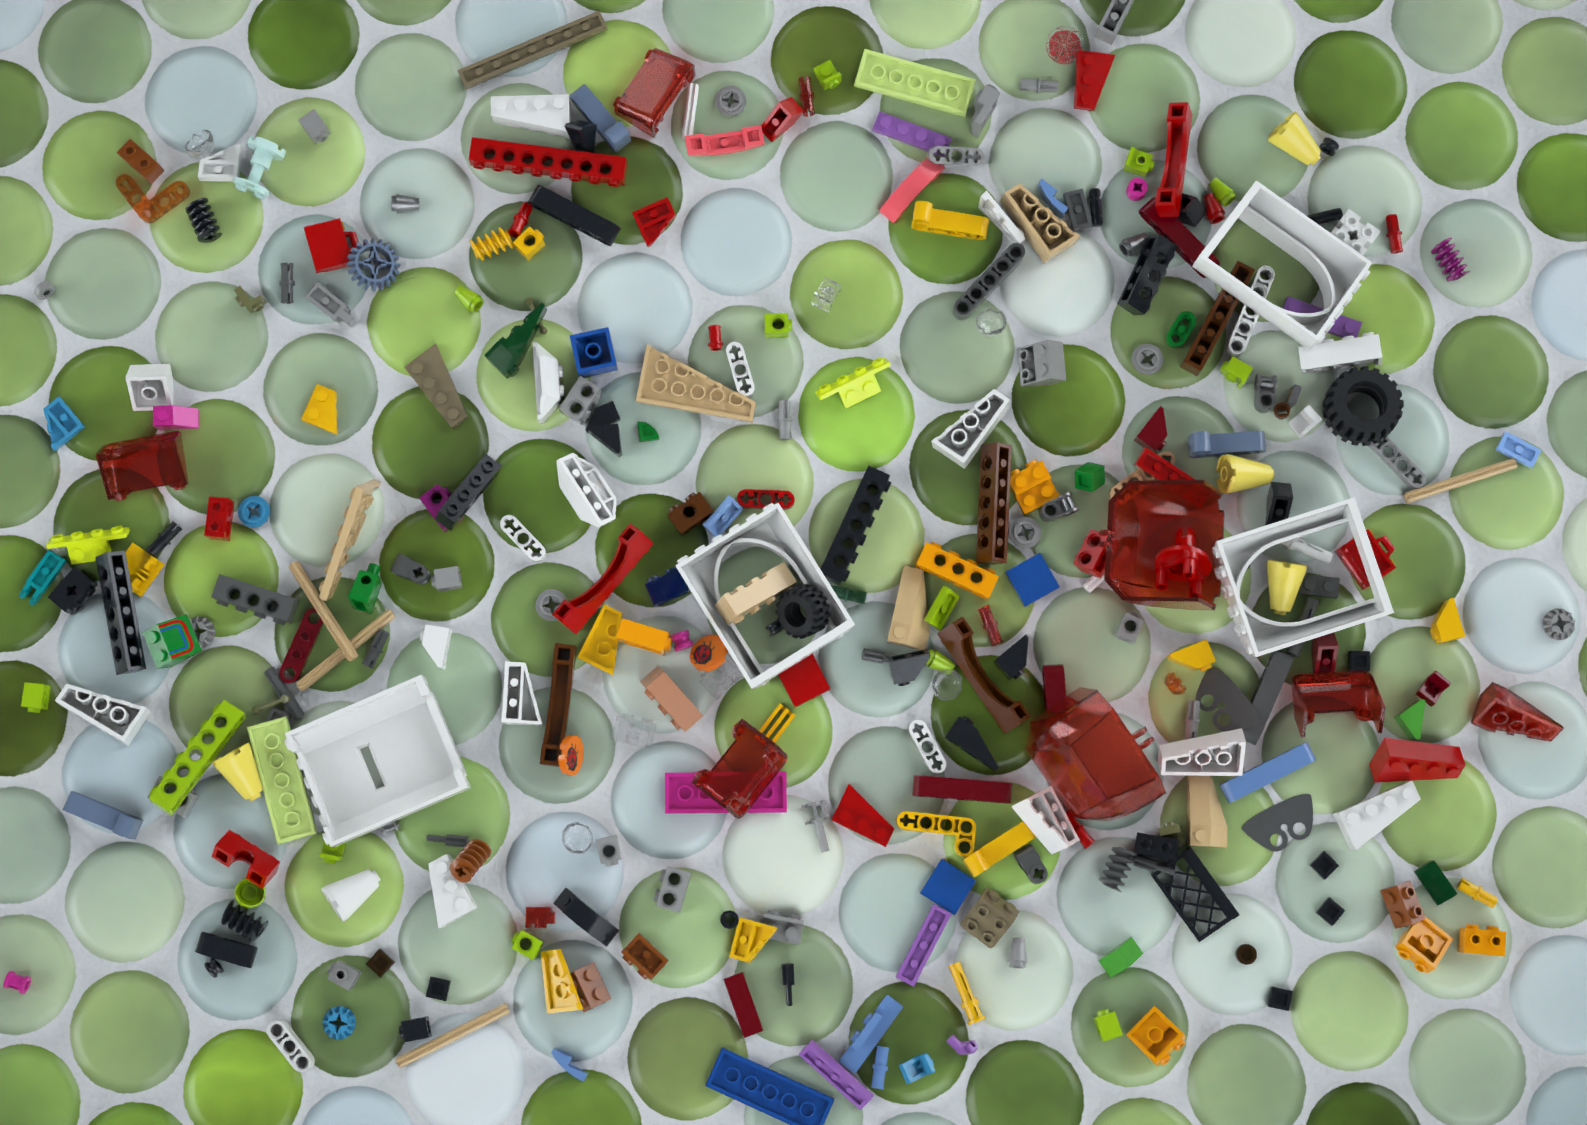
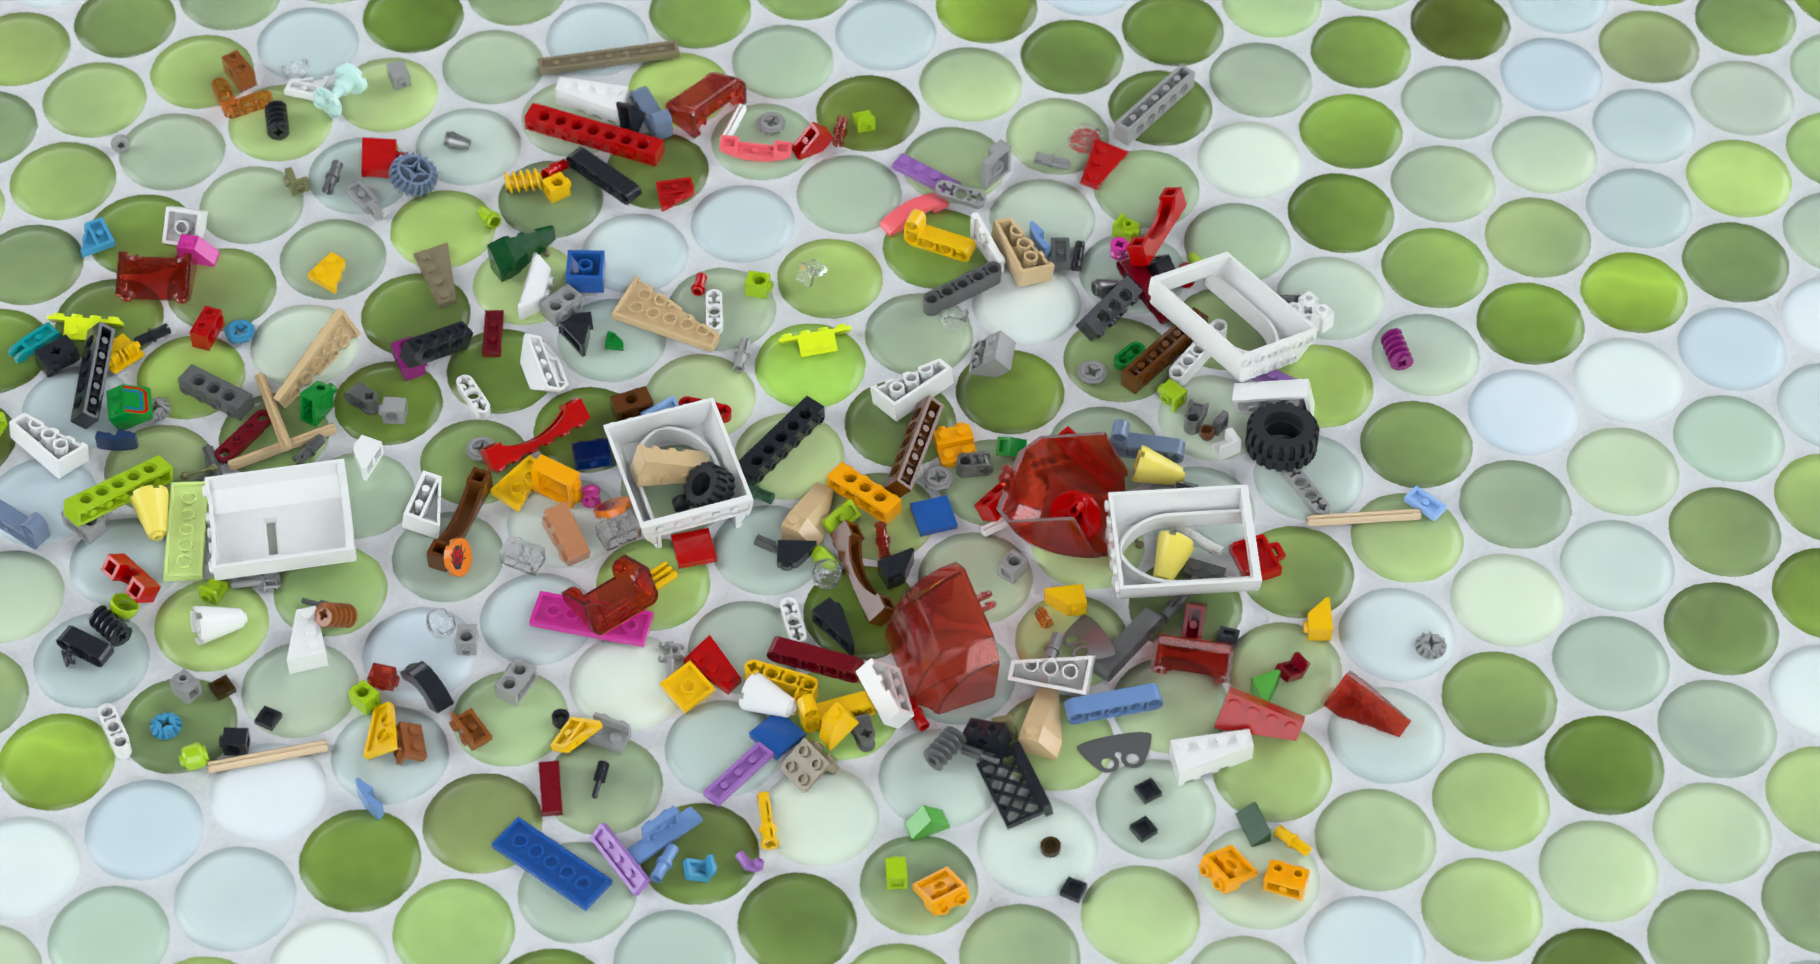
camera: 15 degrees right, 30 degrees down
(177, 684) = (119, 442): none -> dark blue slope
(380, 1058) = (194, 756): none -> lime head
(518, 450) = (493, 333): none -> dark red tile
(844, 853) = (687, 687): none -> yellow tile
(914, 82) = (939, 140): yellowish green tile -> none
(932, 856) = (766, 697): none -> white cone
(1008, 871) = (836, 725): none -> yellow slope
(1017, 955) = (826, 800): light grey cone -> none
(1154, 432) = (1081, 420): dark red slope -> none
(1295, 140) = (1274, 235): light yellow cone -> none
(1329, 146) = (1306, 249): black bush -> none
(1394, 234) = (1350, 324): red axle -> none
(1403, 904) = (1215, 831): dark orange bracket -> none

